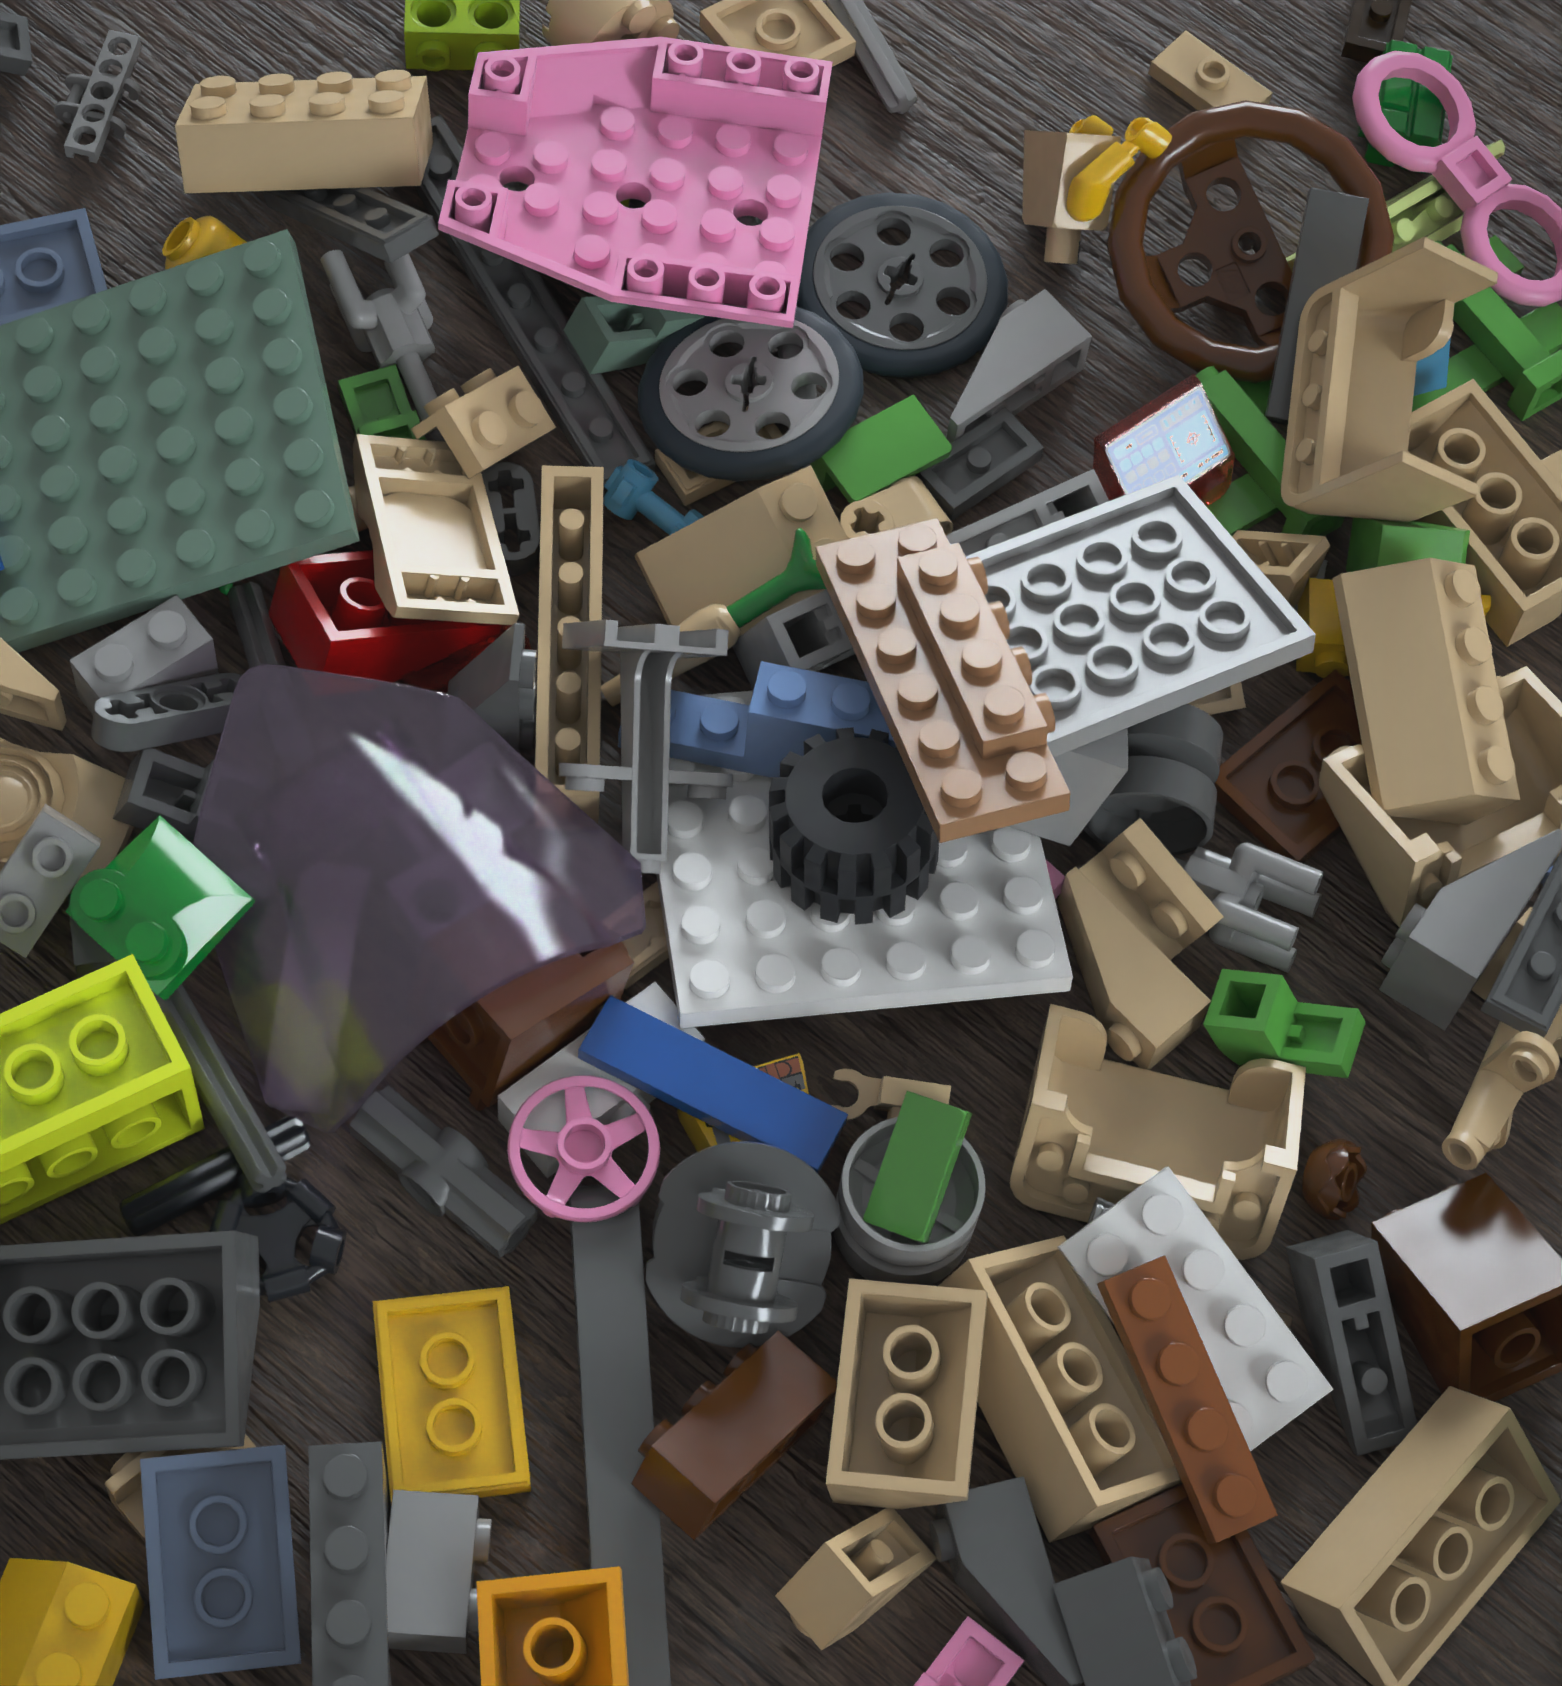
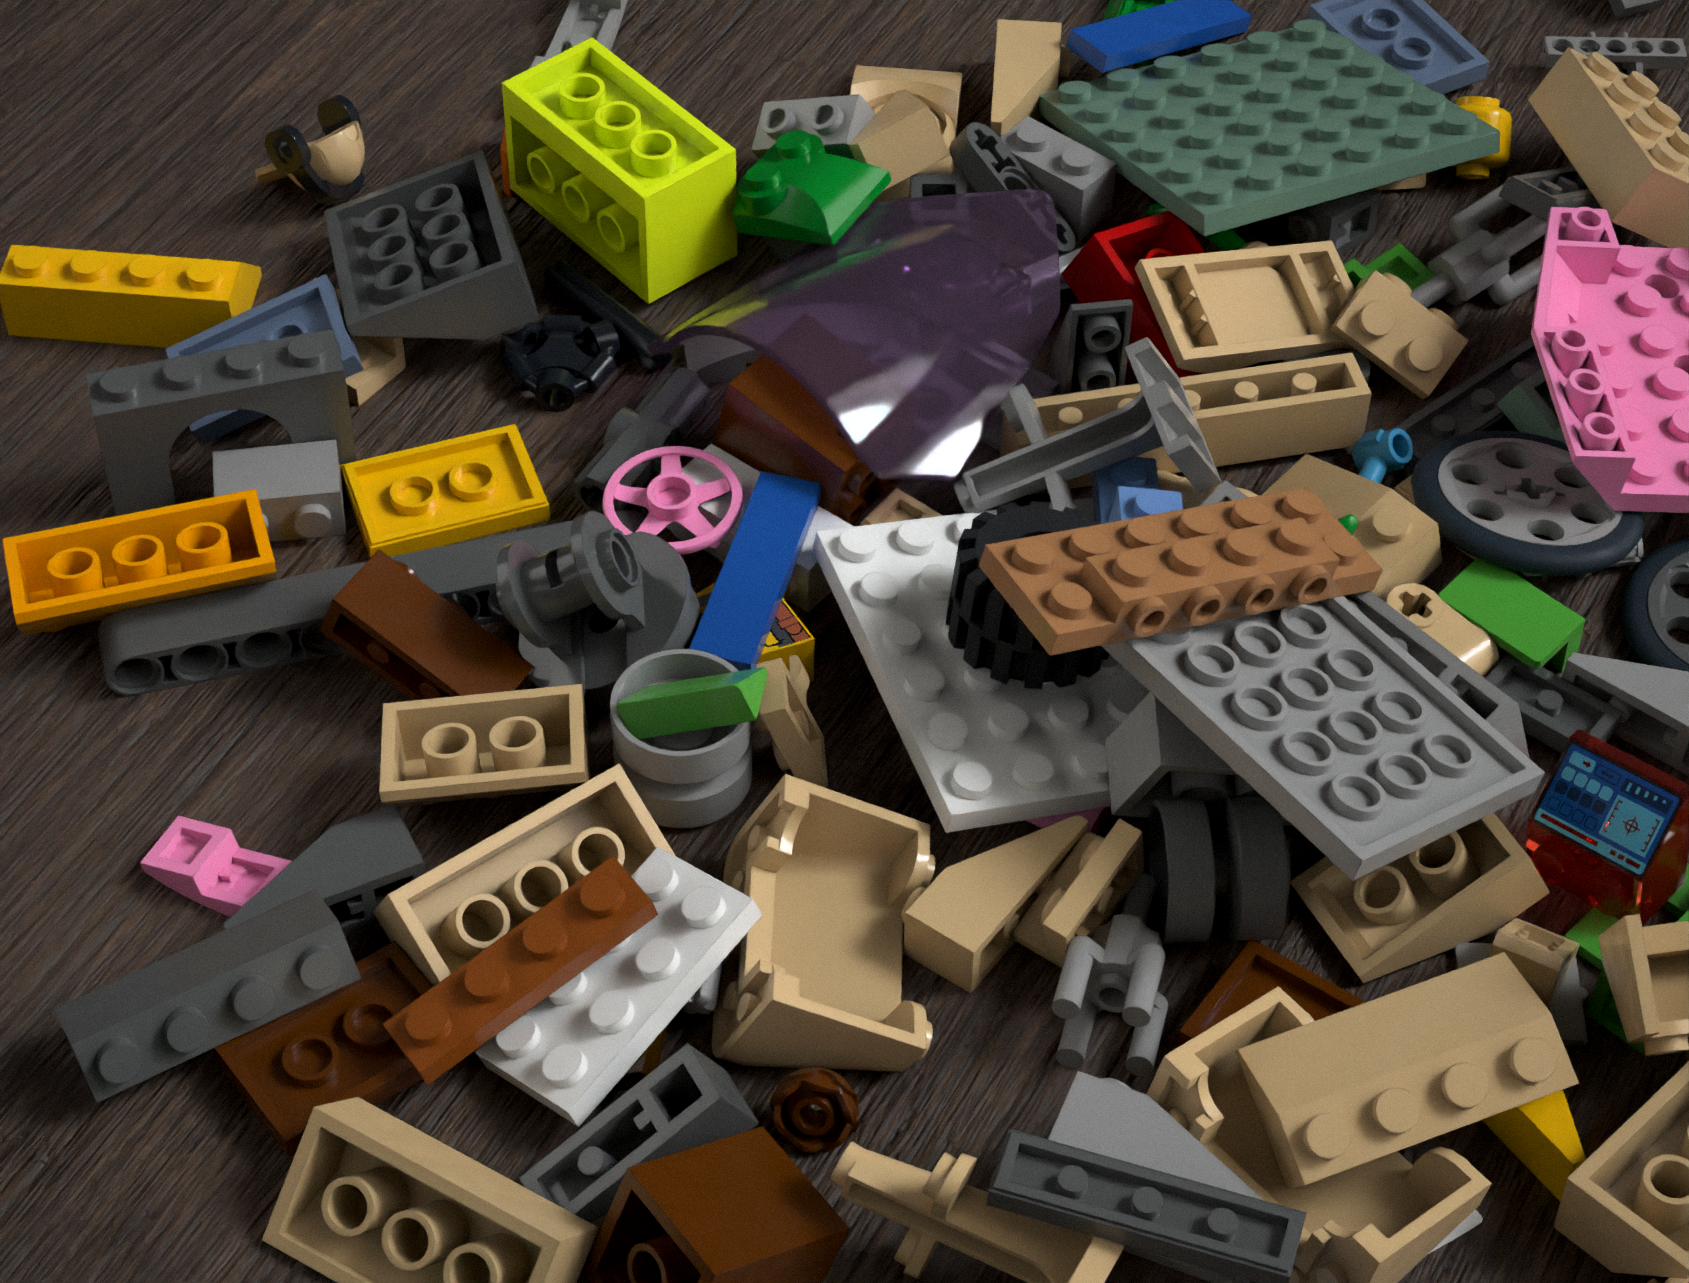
camera: 85 degrees right, 15 degrees down
(85, 789) = (900, 138): none -> tan slope
(224, 1094) = (678, 289): dark grey axle -> none
(854, 1577) = (314, 767): tan slope -> none
(1260, 1018) = (968, 1022): bright green brick -> none
(1393, 542) = (1608, 1069): bright green slope -> none

